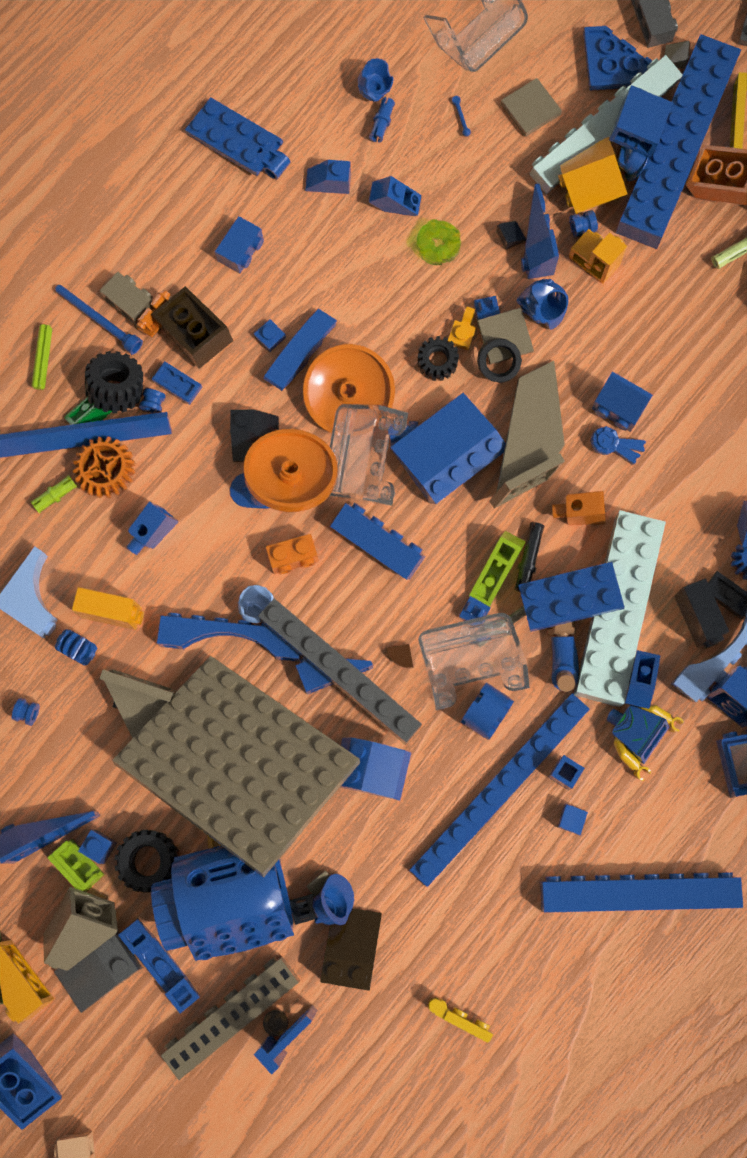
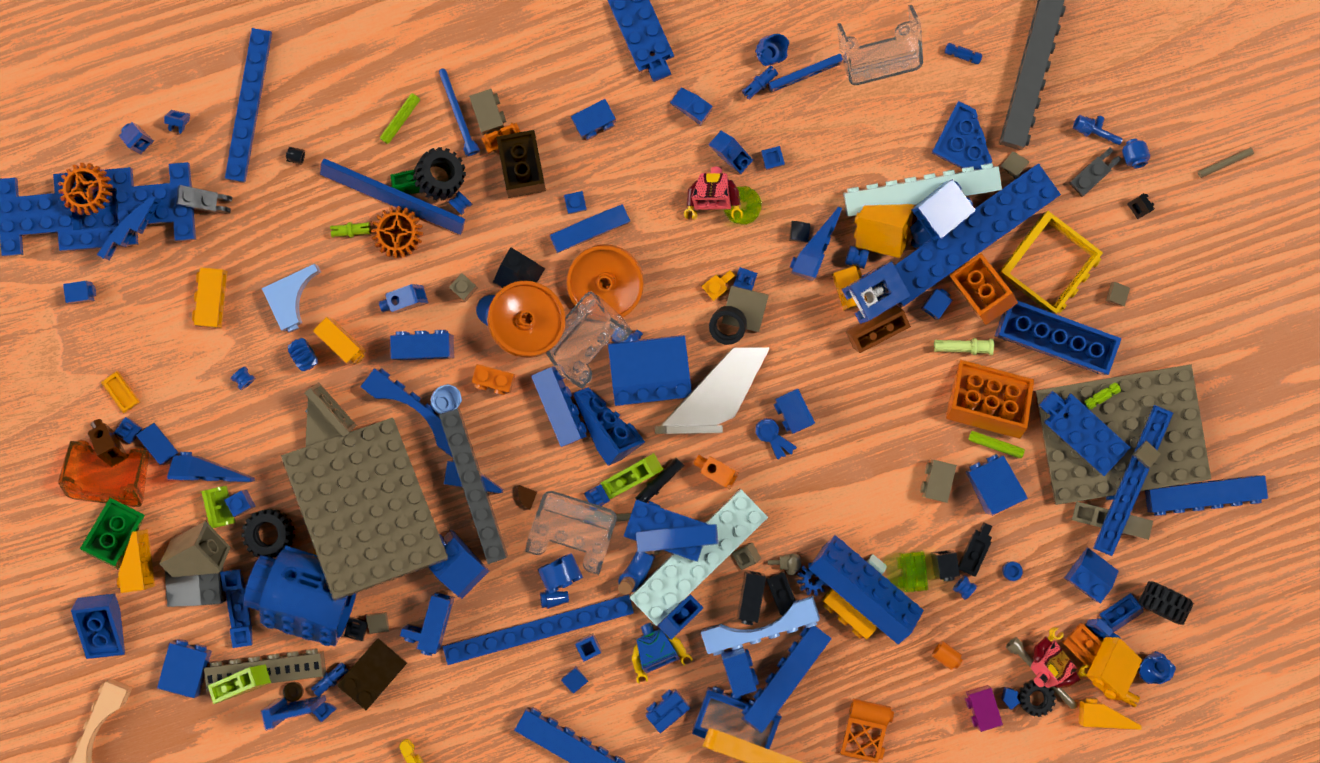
camera: 25 degrees right, 10 degrees up
(139, 1071) = (184, 668): none -> blue brick
(177, 383) = (486, 199): blue plate -> none
(198, 562) = (422, 345): none -> blue brick
(205, 481) = (463, 287): none -> dark tan brick
(210, 1046) = (239, 683): none -> lime slope
(308, 983) = (330, 679): none -> blue pin
(321, 1024) = (324, 711): none -> blue tile
(334, 901) = (378, 637): blue piece -> none
(388, 851) = (434, 626): none -> blue brick
(401, 242) = (712, 192): none -> torso
(420, 86) = (805, 73): none -> blue tile
(439, 180) = (772, 158): none -> blue plate
(442, 346) = (697, 295): black tyre -> none
(449, 540) = (609, 433): none -> blue wedge
(456, 100) = (826, 99): blue hinge -> none
(497, 744) = (553, 599): none -> blue cone
(531, 107) = (878, 139): dark tan tile -> none
(541, 305) = (787, 301): blue piece -> none
(589, 592) = (677, 538): none -> blue slope
(629, 231) = (882, 289): none -> blue brick
(650, 276) = (878, 329): none -> dark orange brick
(667, 580) = (746, 556): none -> dark tan slope
(691, 221) = (937, 303): none -> blue brick
(691, 790) = (667, 710): none -> blue brick
(715, 559) = (789, 562): none -> dark tan piece

